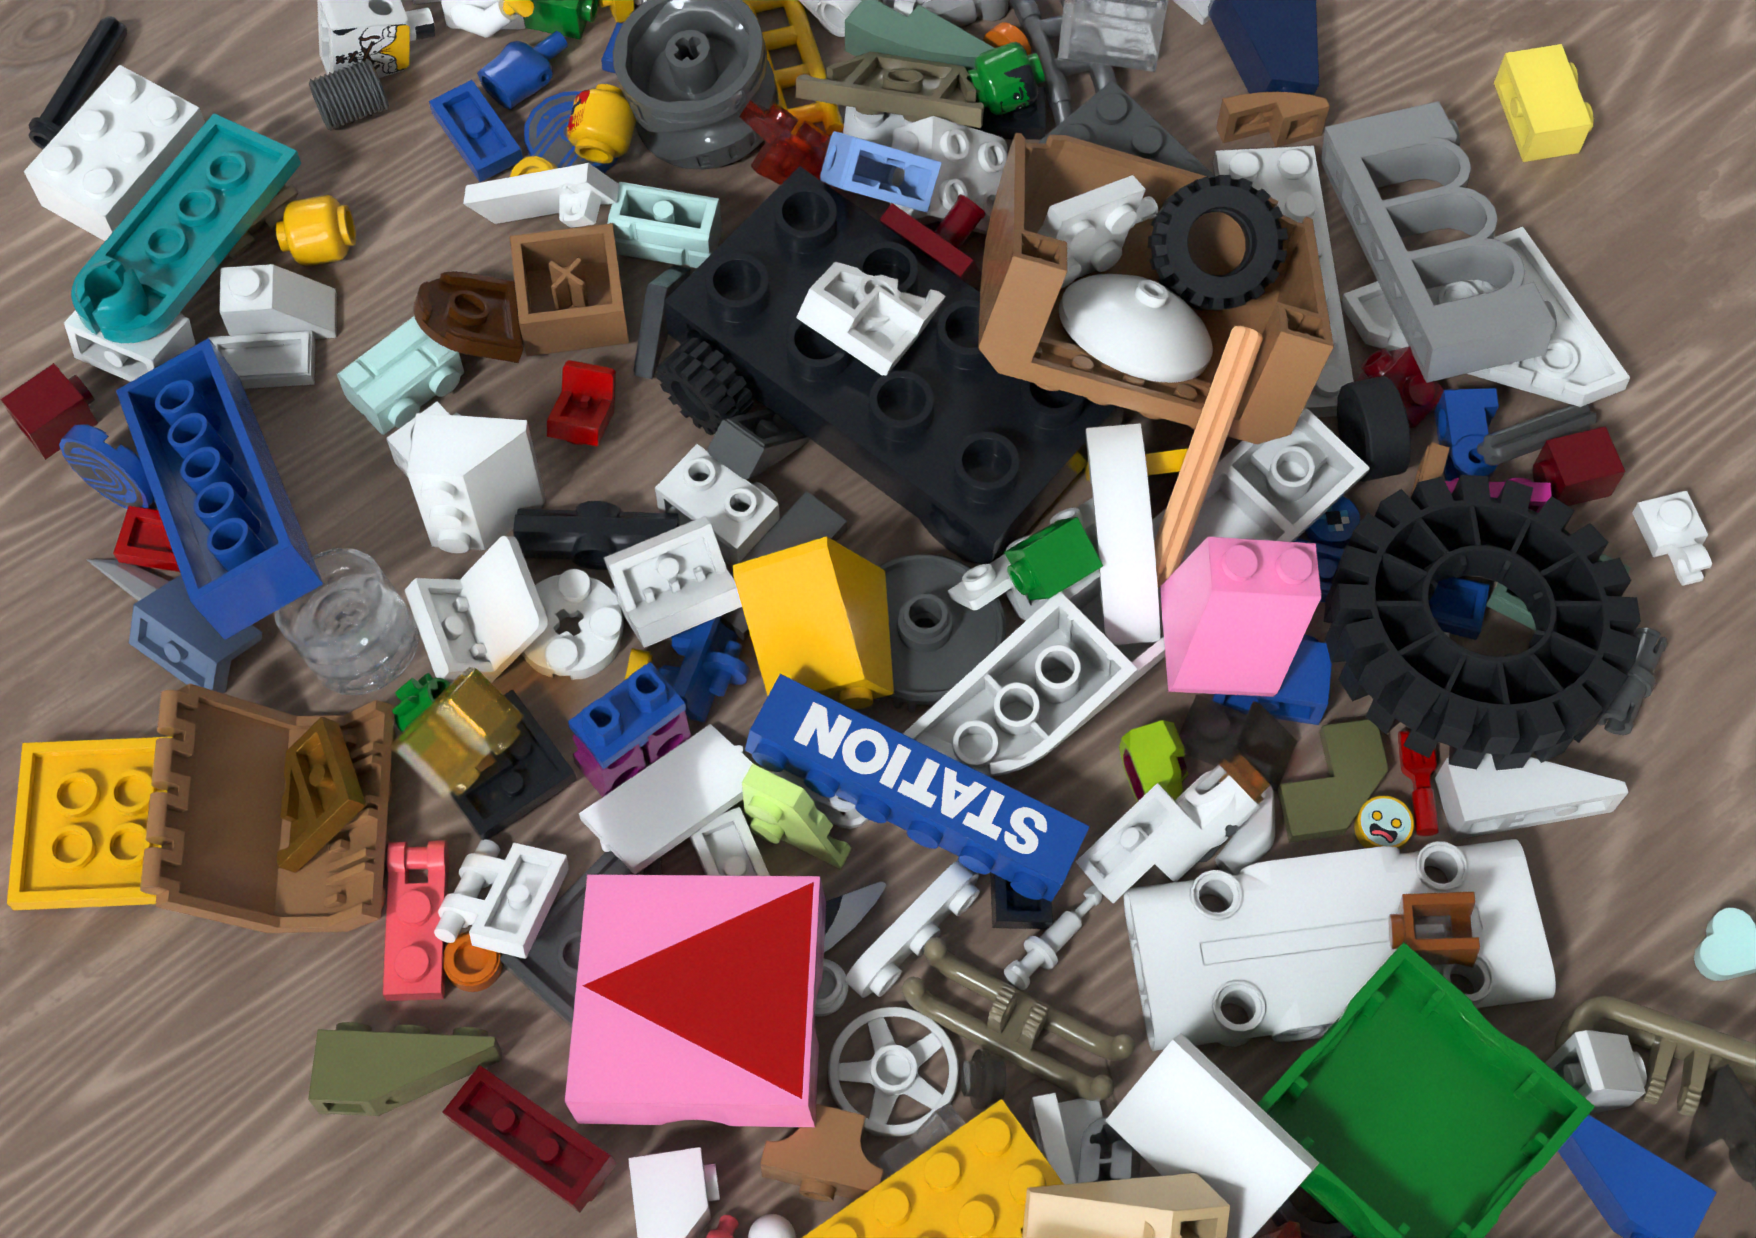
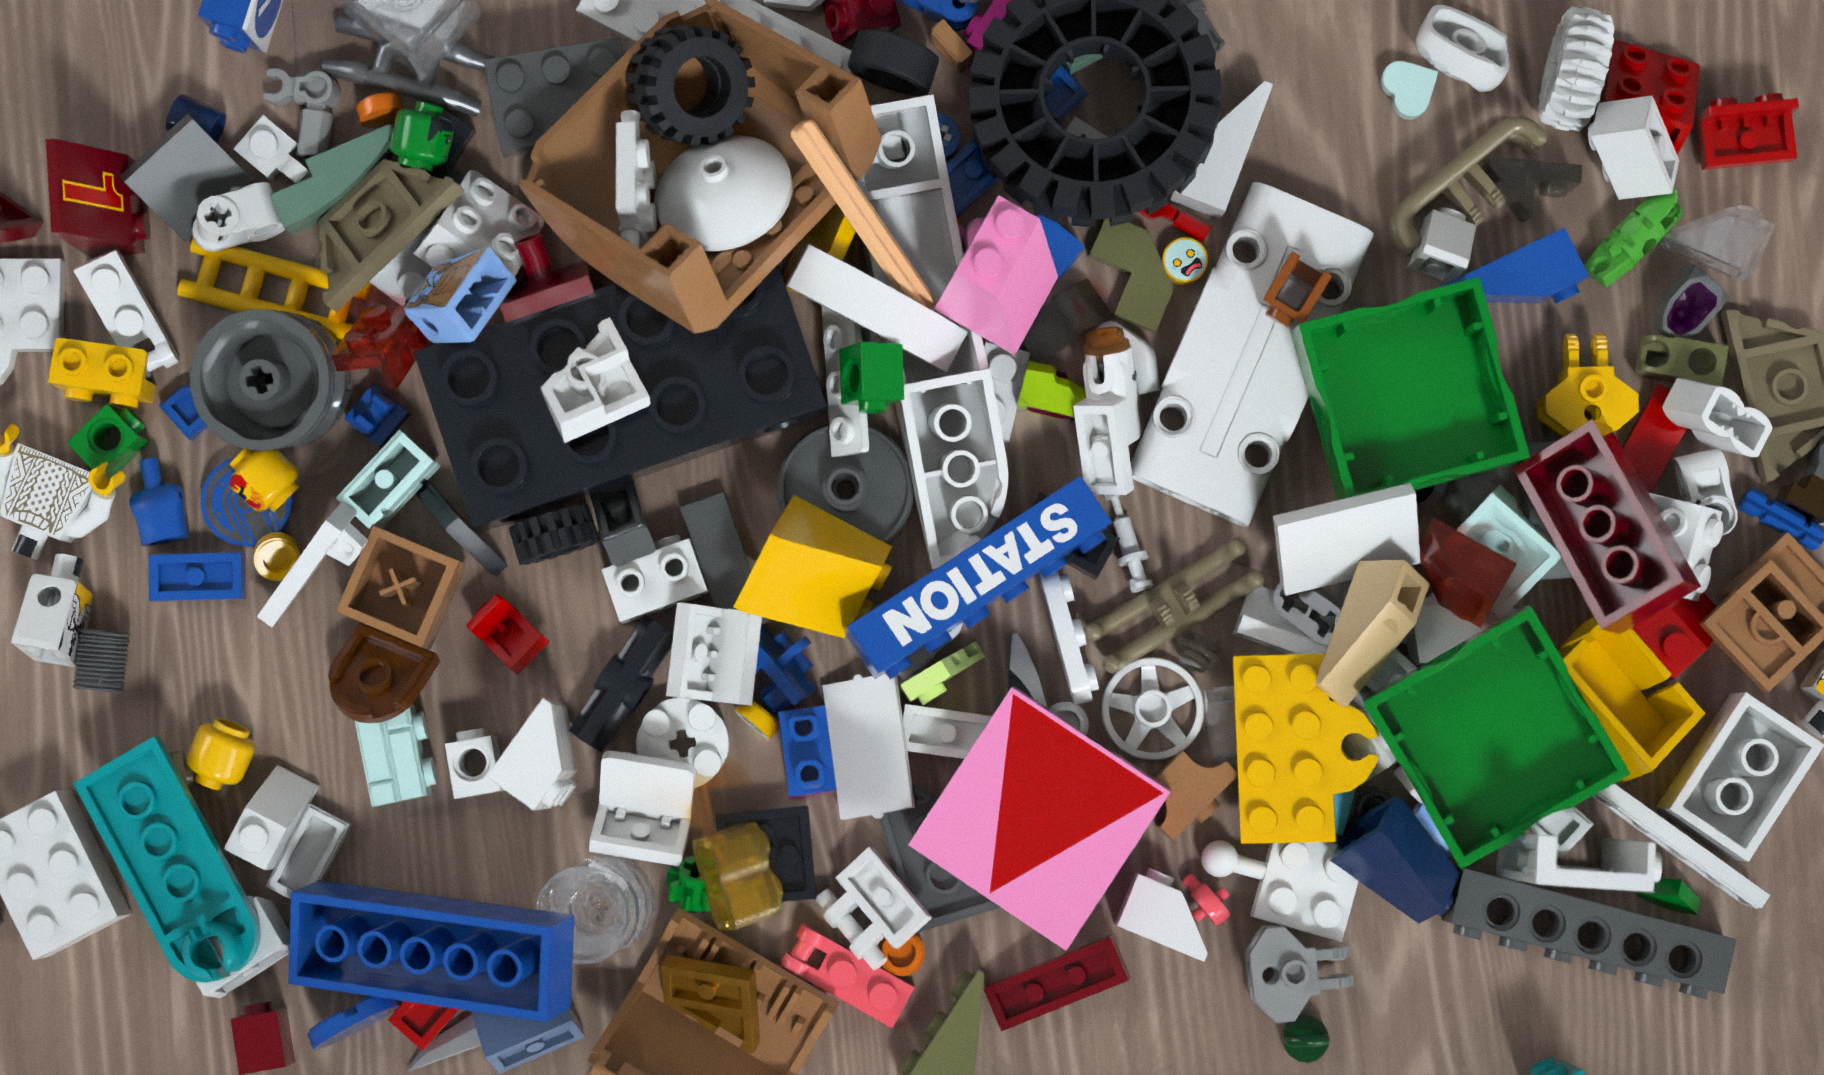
camera: 60 degrees left, 20 degrees up
(731, 188) = (377, 416): none -> blue tile
(1130, 710) = (1007, 379): none -> white plate

